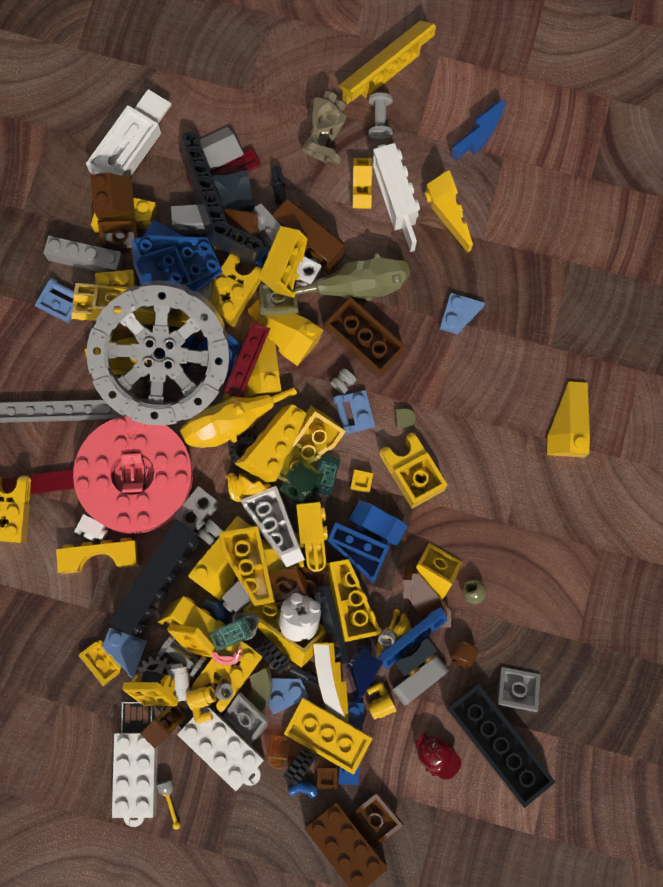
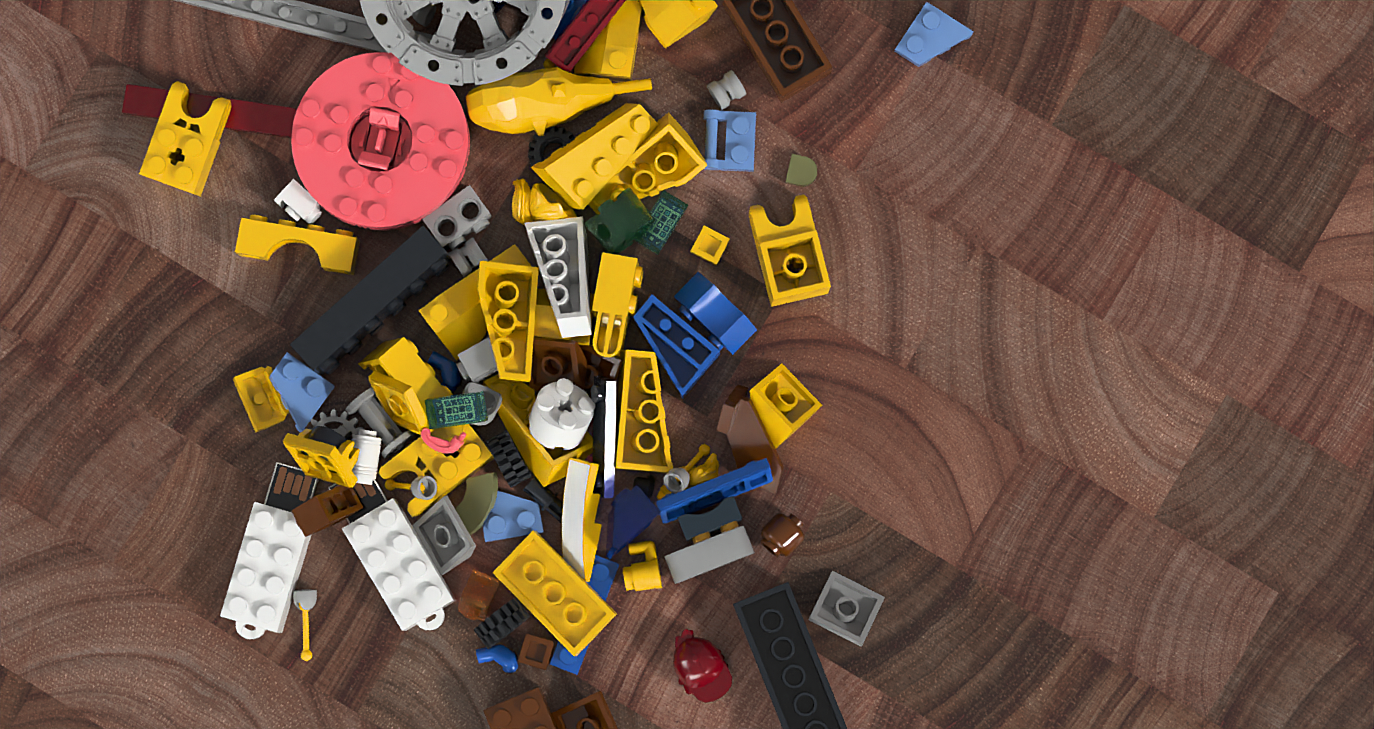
camera: 25 degrees right, 5 degrees up
(200, 698) = (387, 487): yellow piece -> none
(474, 592) = (824, 452): olive piece -> none
(571, 426) = (1041, 253): yellow wedge -> none

